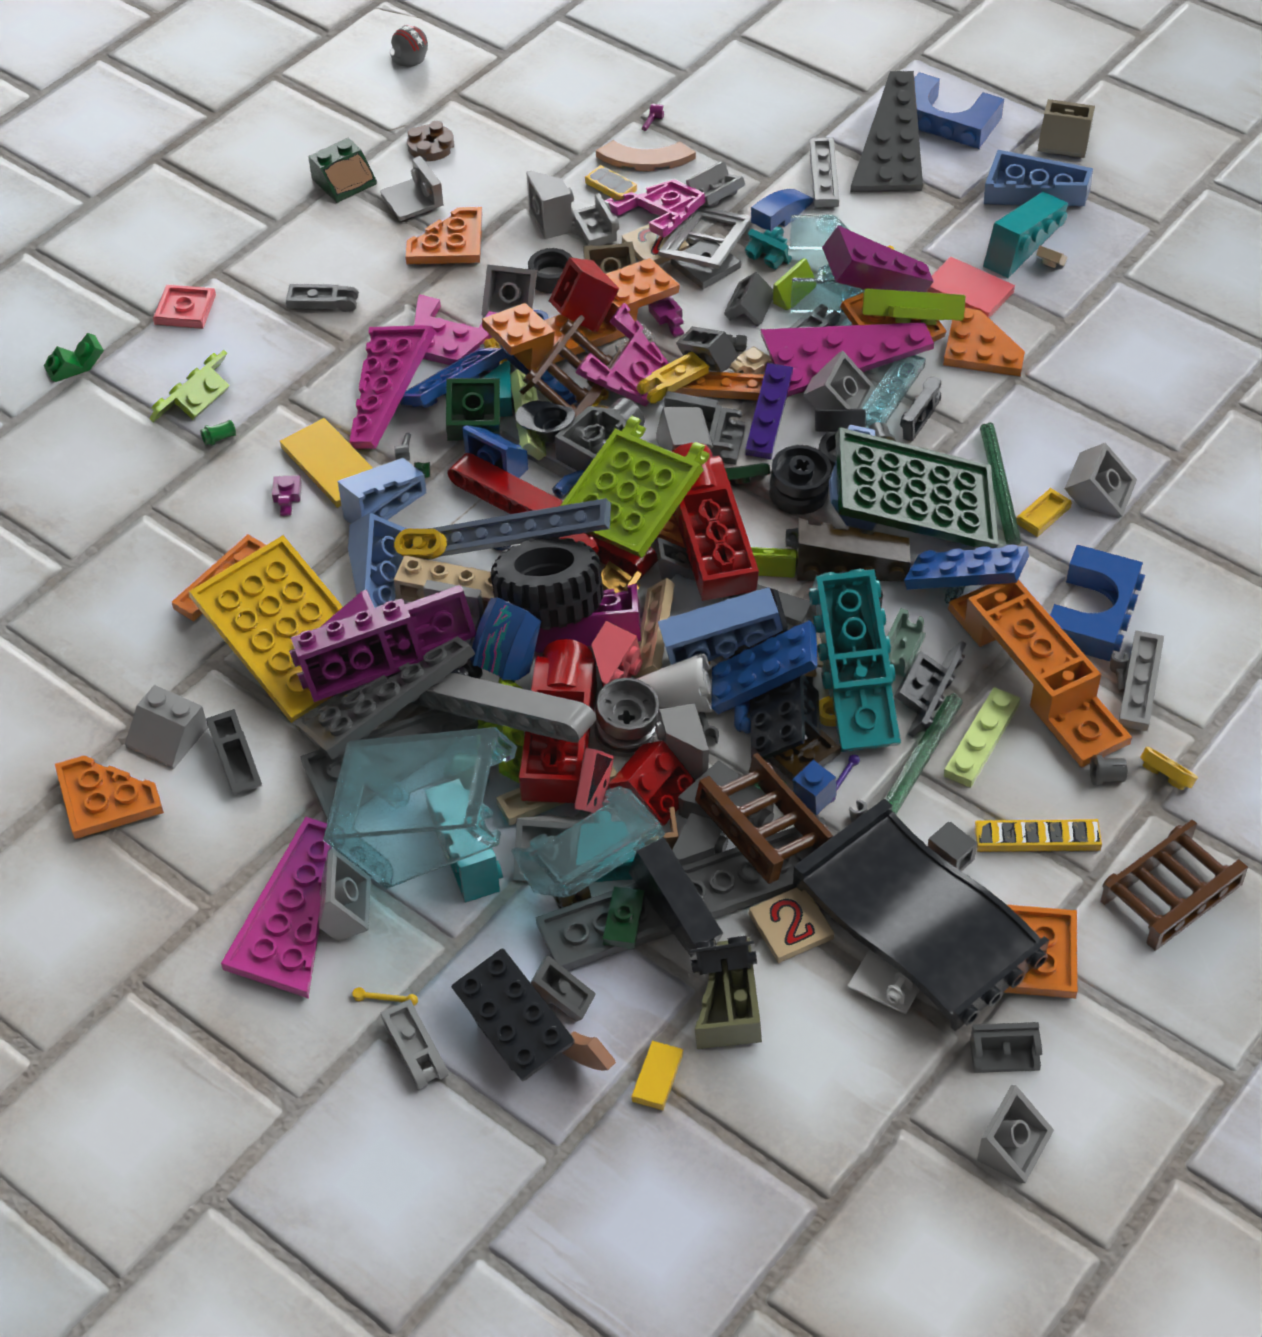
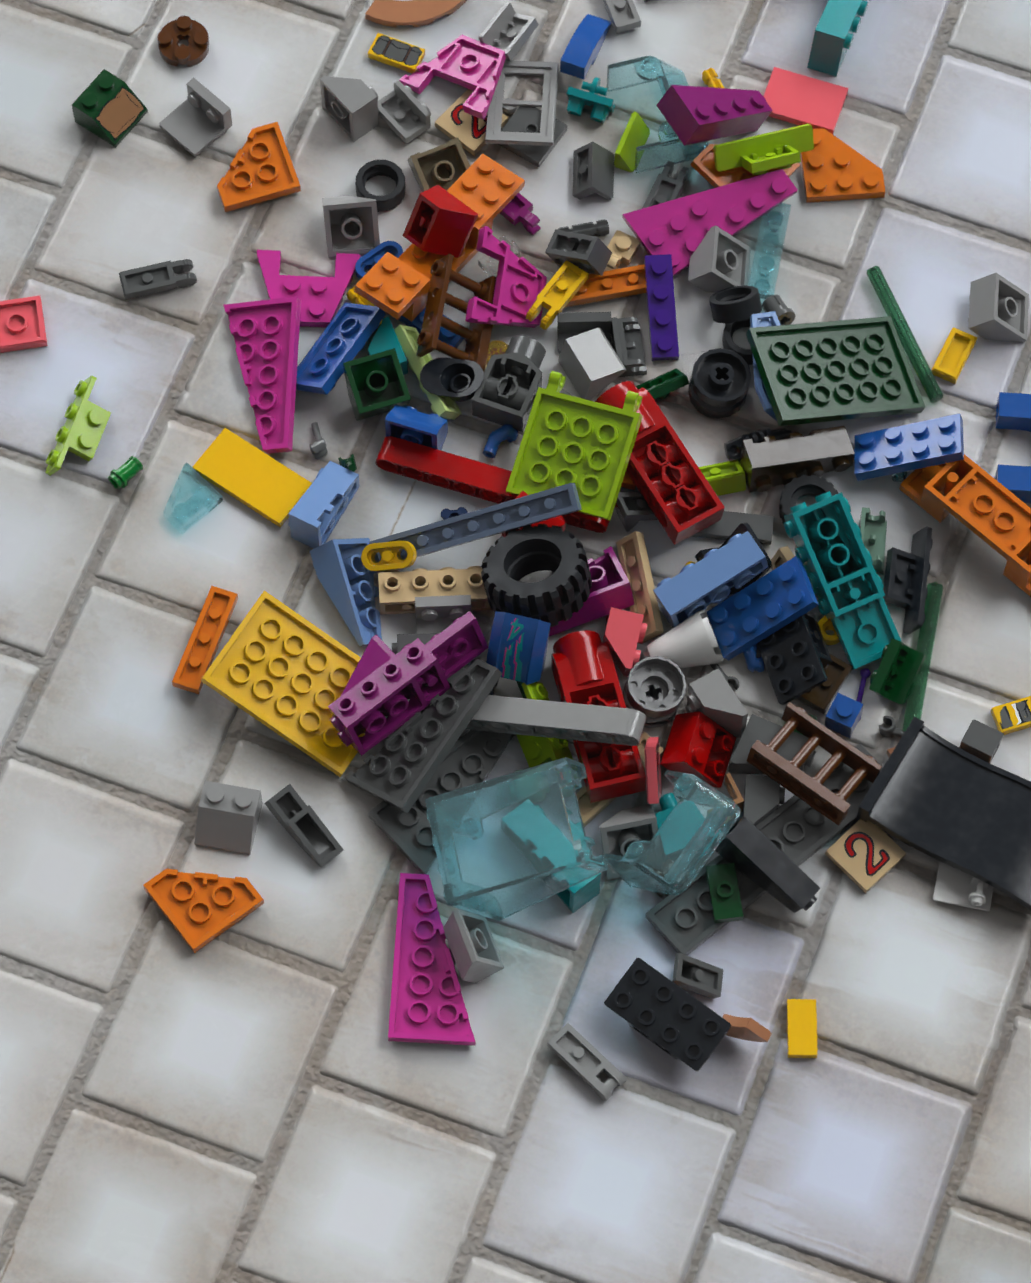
camera: 20 degrees left, 15 degrees up
(265, 463) = (190, 500): none -> clear light blue wing
(285, 491) = (224, 523): magenta plate -> none
(359, 995) = (517, 1027): yellow hinge -> none
(617, 579) = (592, 542): pearl gold bracket -> none
(710, 956) = (818, 912): black hinge -> none
(729, 1009) = (843, 942): olive wedge -> none
(883, 759) = (896, 671): none -> dark green bracket
(921, 409) = (805, 264): black hinge -> none
(982, 737) = (970, 618): yellowish green plate -> none
(1051, 257) = (873, 44): tan plate -> none

